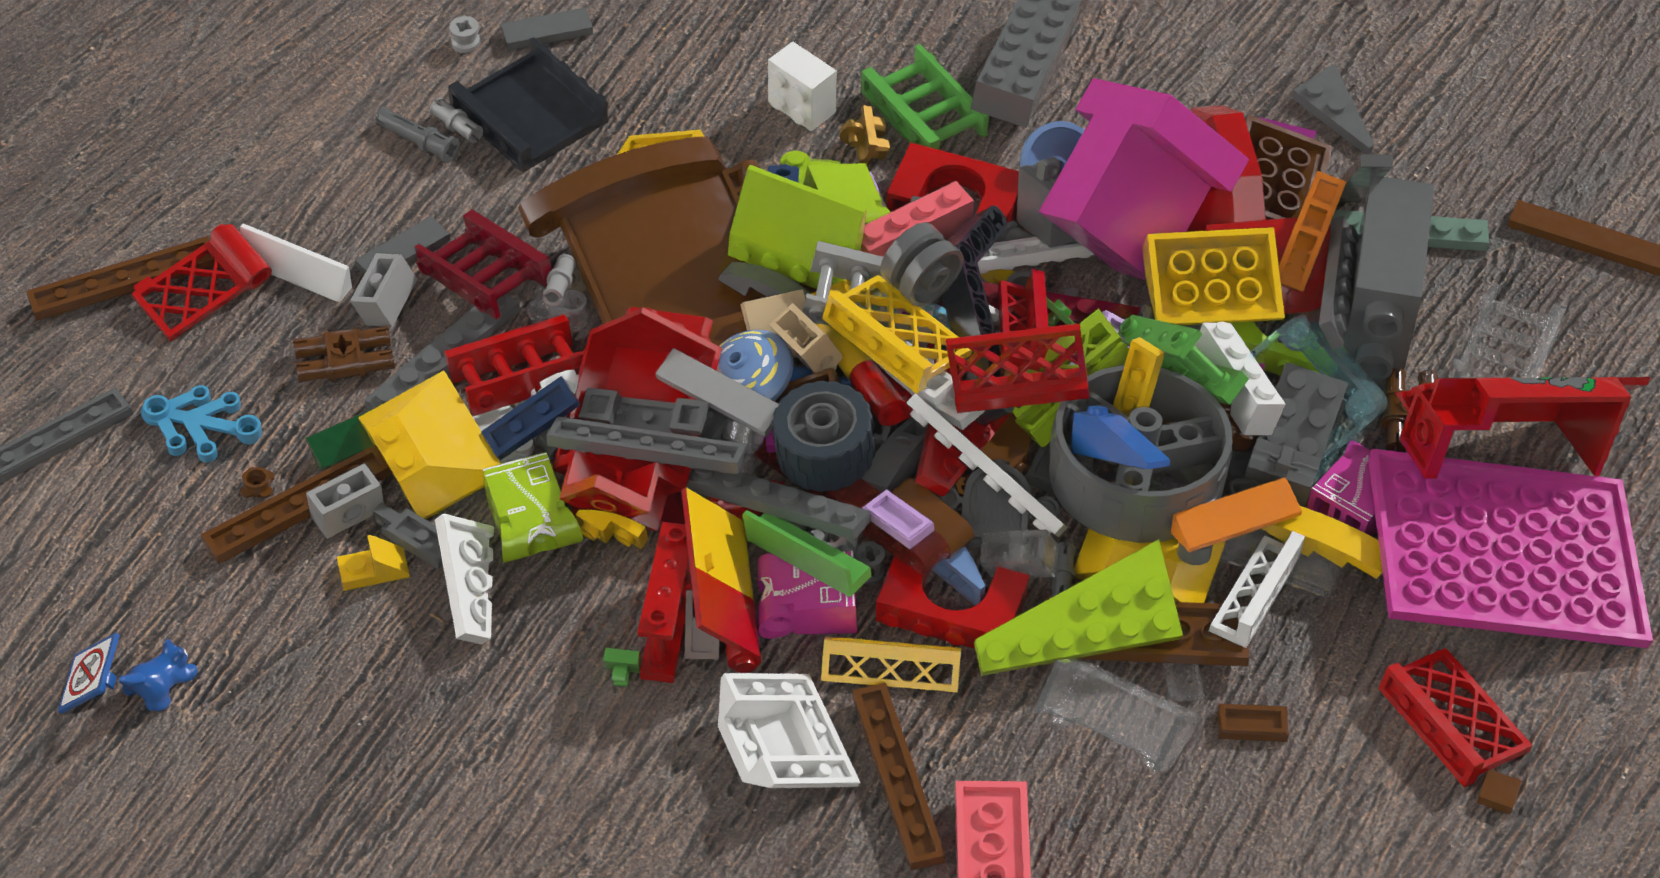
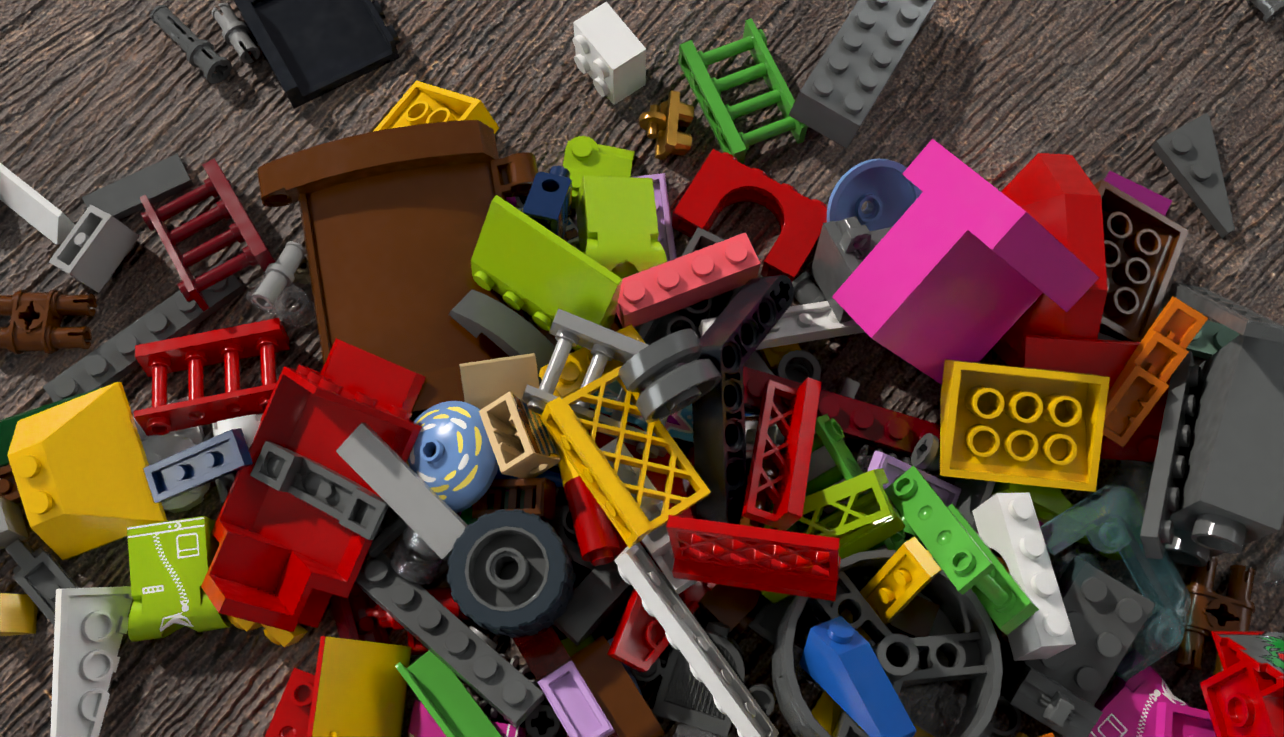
camera: 10 degrees right, 20 degrees up
(647, 445) = (310, 543): dark grey plate -> none

